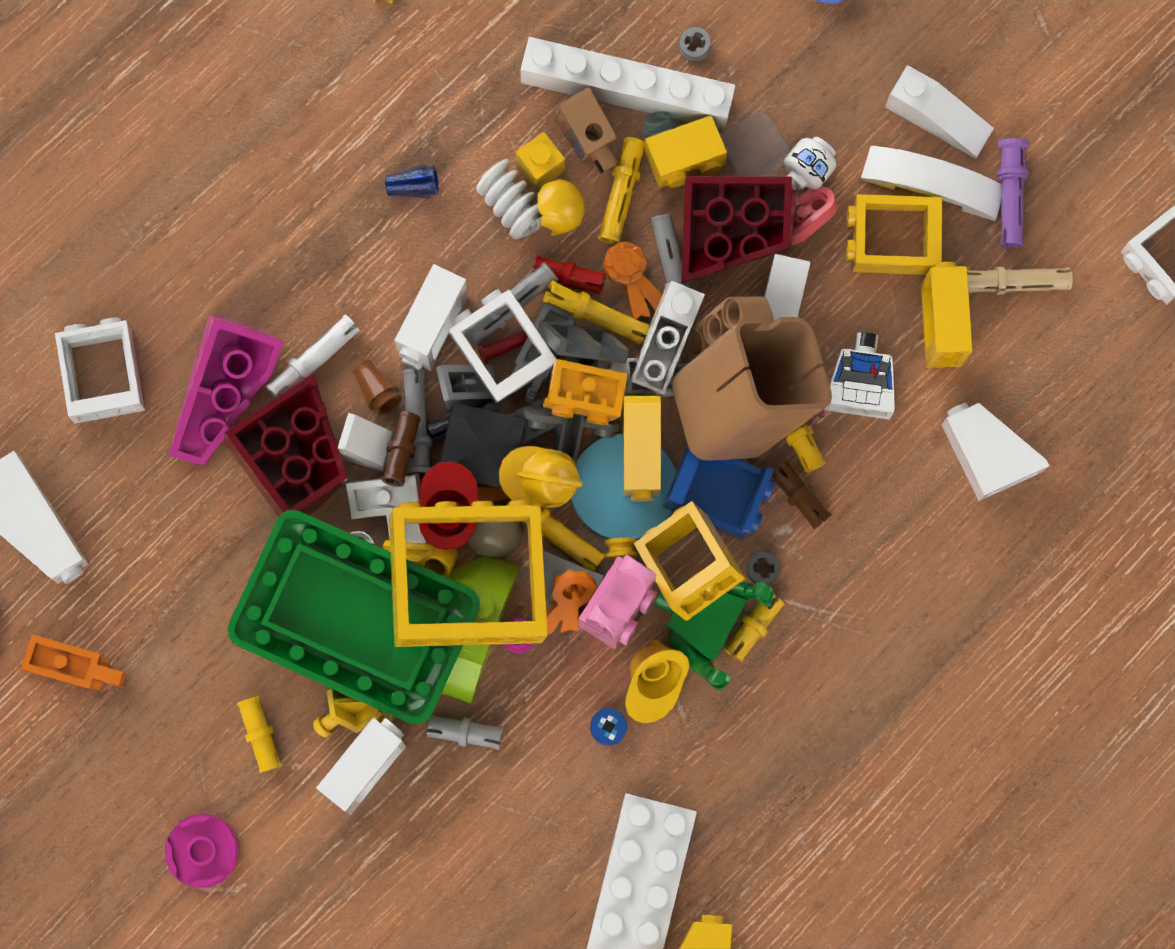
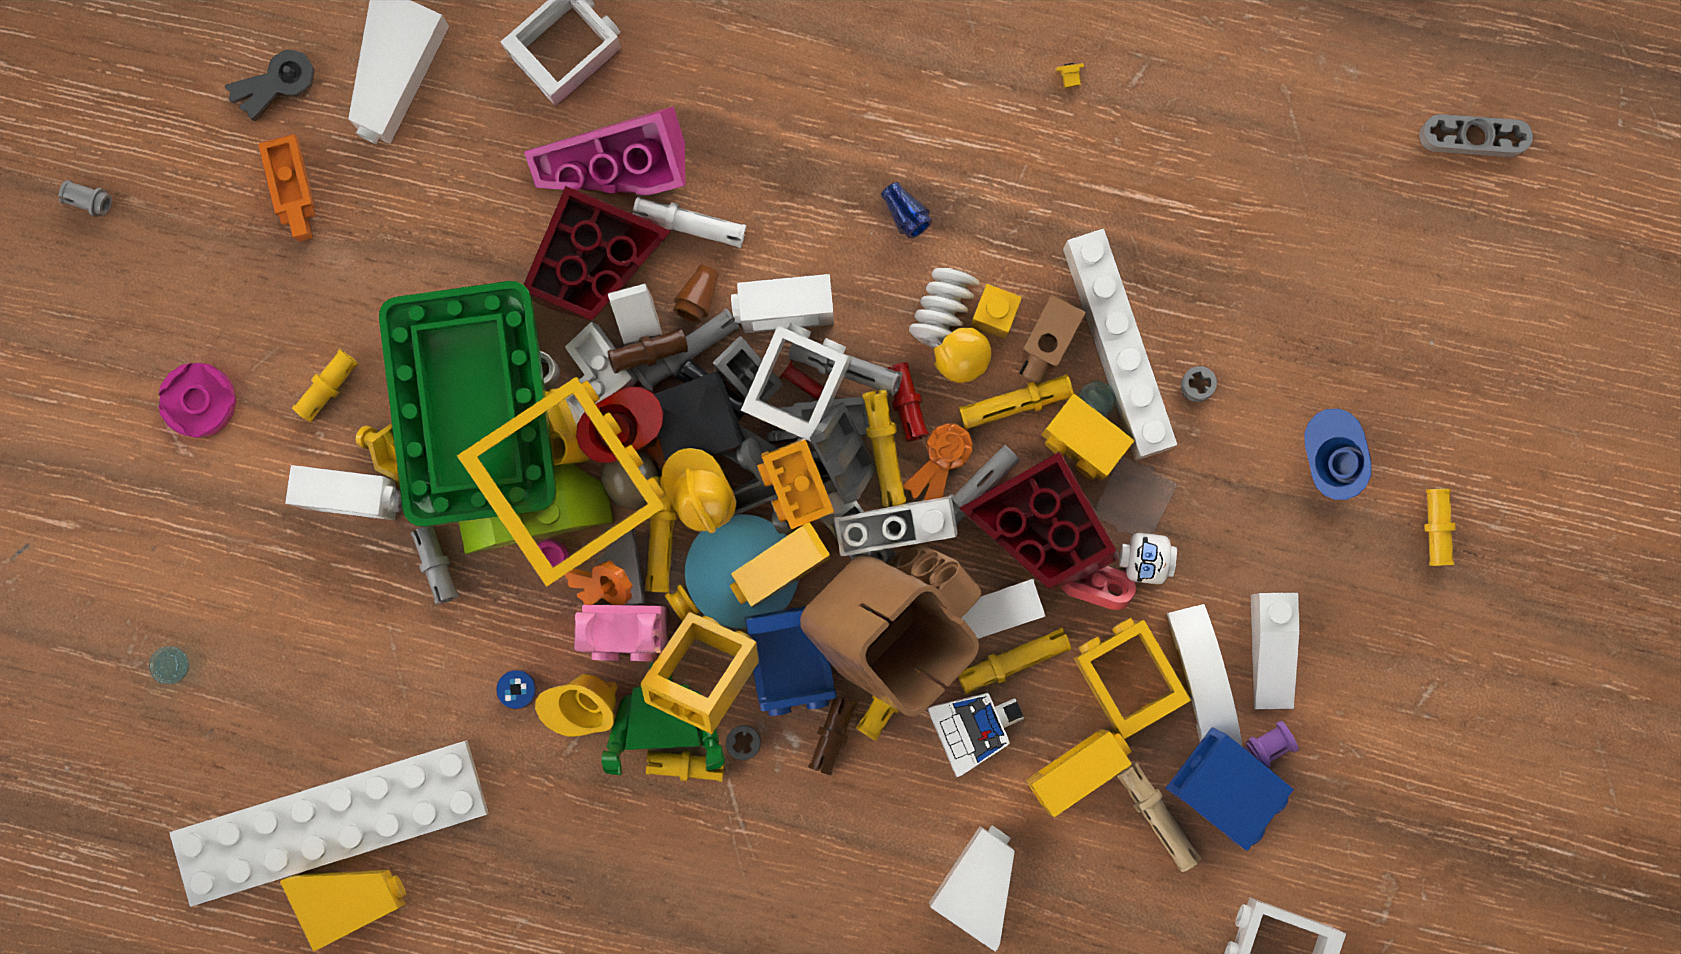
camera: 65 degrees right, 5 degrees up
(827, 312) = (1013, 661): none -> yellow pin
(1028, 209) = (1230, 788): none -> blue panel

